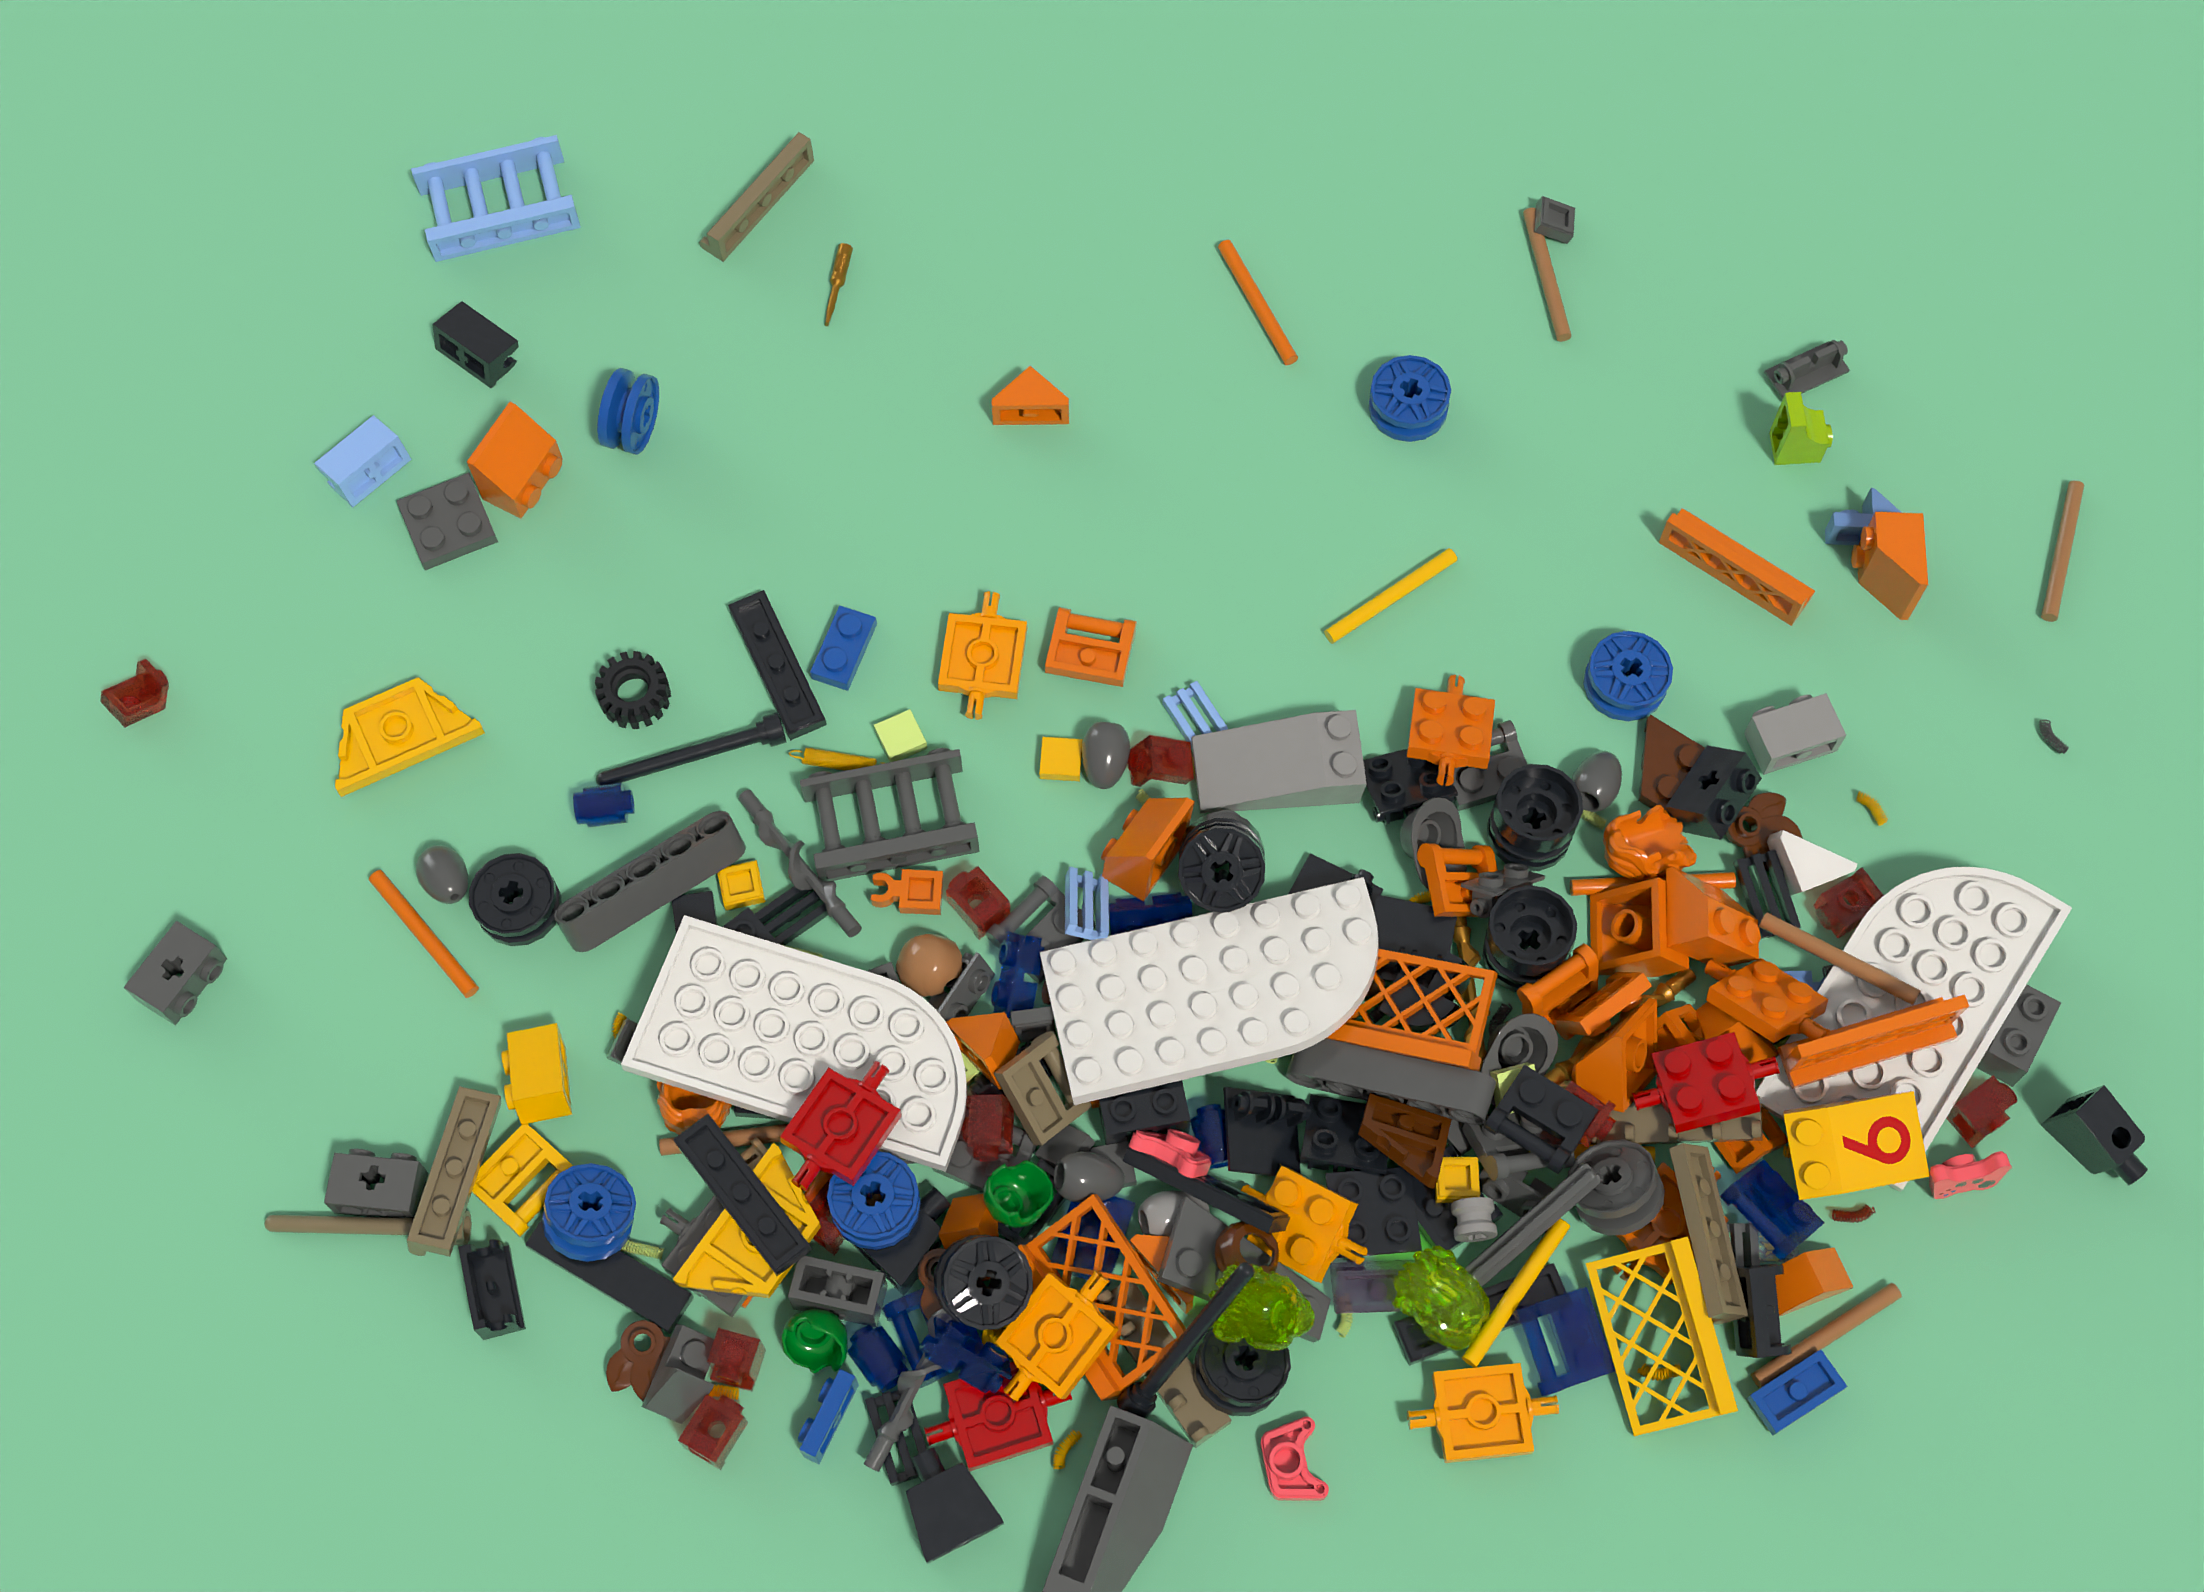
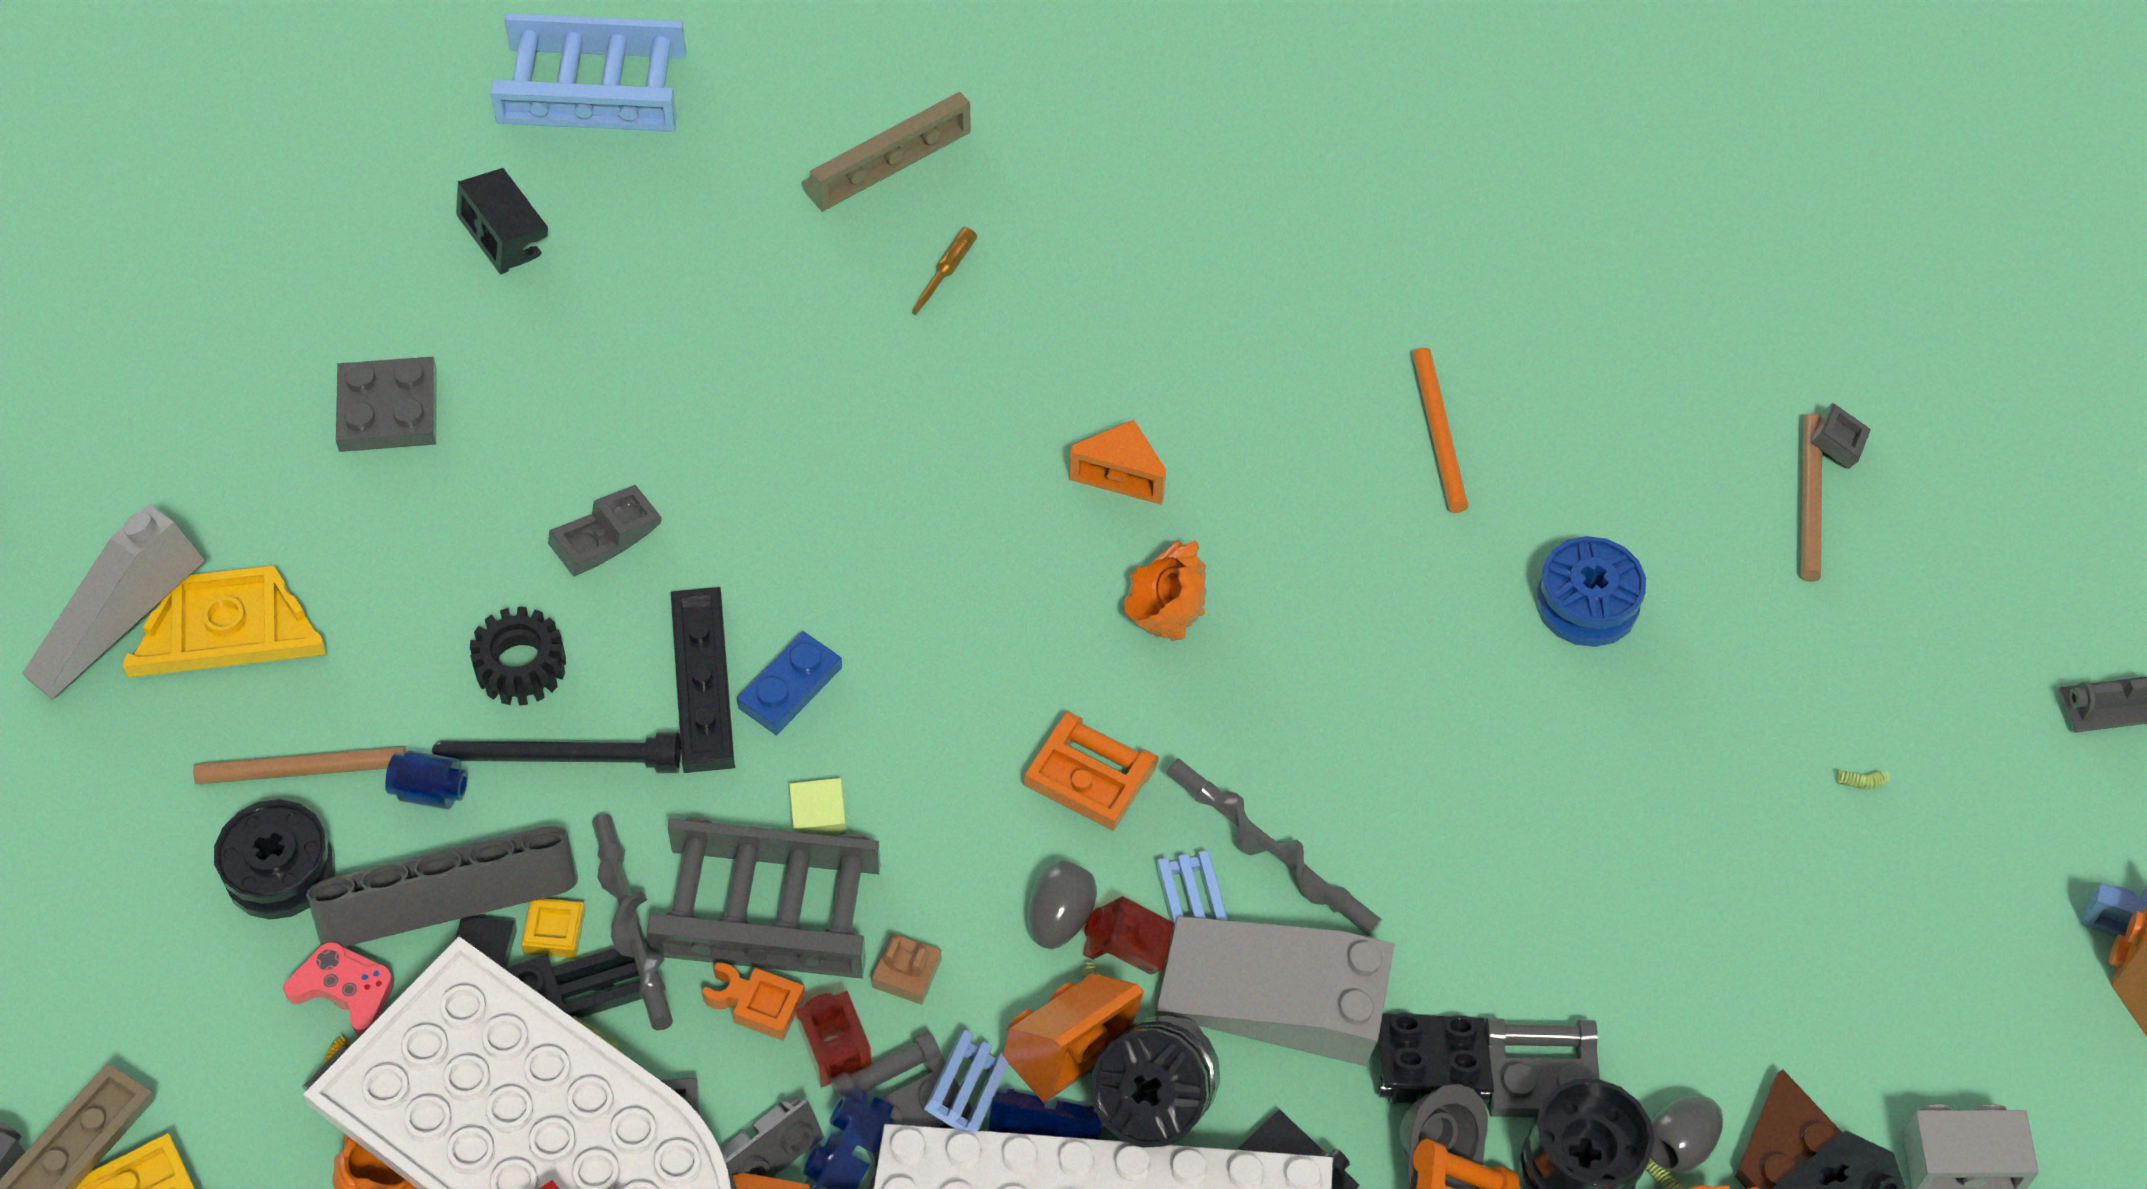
camera: 15 degrees right, 10 degrees down
(306, 739) = (121, 587): none -> light grey wedge
(363, 461) = (319, 310): light blue hinge -> none
(423, 933) = (152, 868): orange bar -> none
(442, 874) = (201, 801): dark grey animal -> none
(508, 820) = (294, 765): none -> medium nougat bar
(514, 462) = (486, 355): orange slope -> none
(537, 1074) = (207, 1078): yellow brick -> none
(607, 972) = (346, 980): none -> coral piece
(628, 411) = (639, 337): blue wheel -> none
(659, 572) = (611, 528): none -> dark grey slope
(834, 760) = (723, 810): yellow piece -> none
(928, 964) = (741, 1096): medium nougat hair -> none
(982, 655) = (953, 741): light orange plate -> none
(1009, 835) = (906, 968): none -> medium nougat tile
(1061, 759) = (1004, 895): yellow tile -> none
(1101, 493) = (1168, 592): none -> orange hair
(1256, 663) = (1255, 841): none -> dark grey piece
(1390, 596) = (1490, 821): yellow bar -> none
(1451, 729) = (1511, 1007): orange plate -> none
(1642, 483) = (1868, 779): none -> yellowish green leg
(1648, 678) = (1767, 1011): blue wheel -> none
(1736, 566) = (1953, 916): orange fence -> none
(1799, 432) = (2082, 773): lime arch -> none

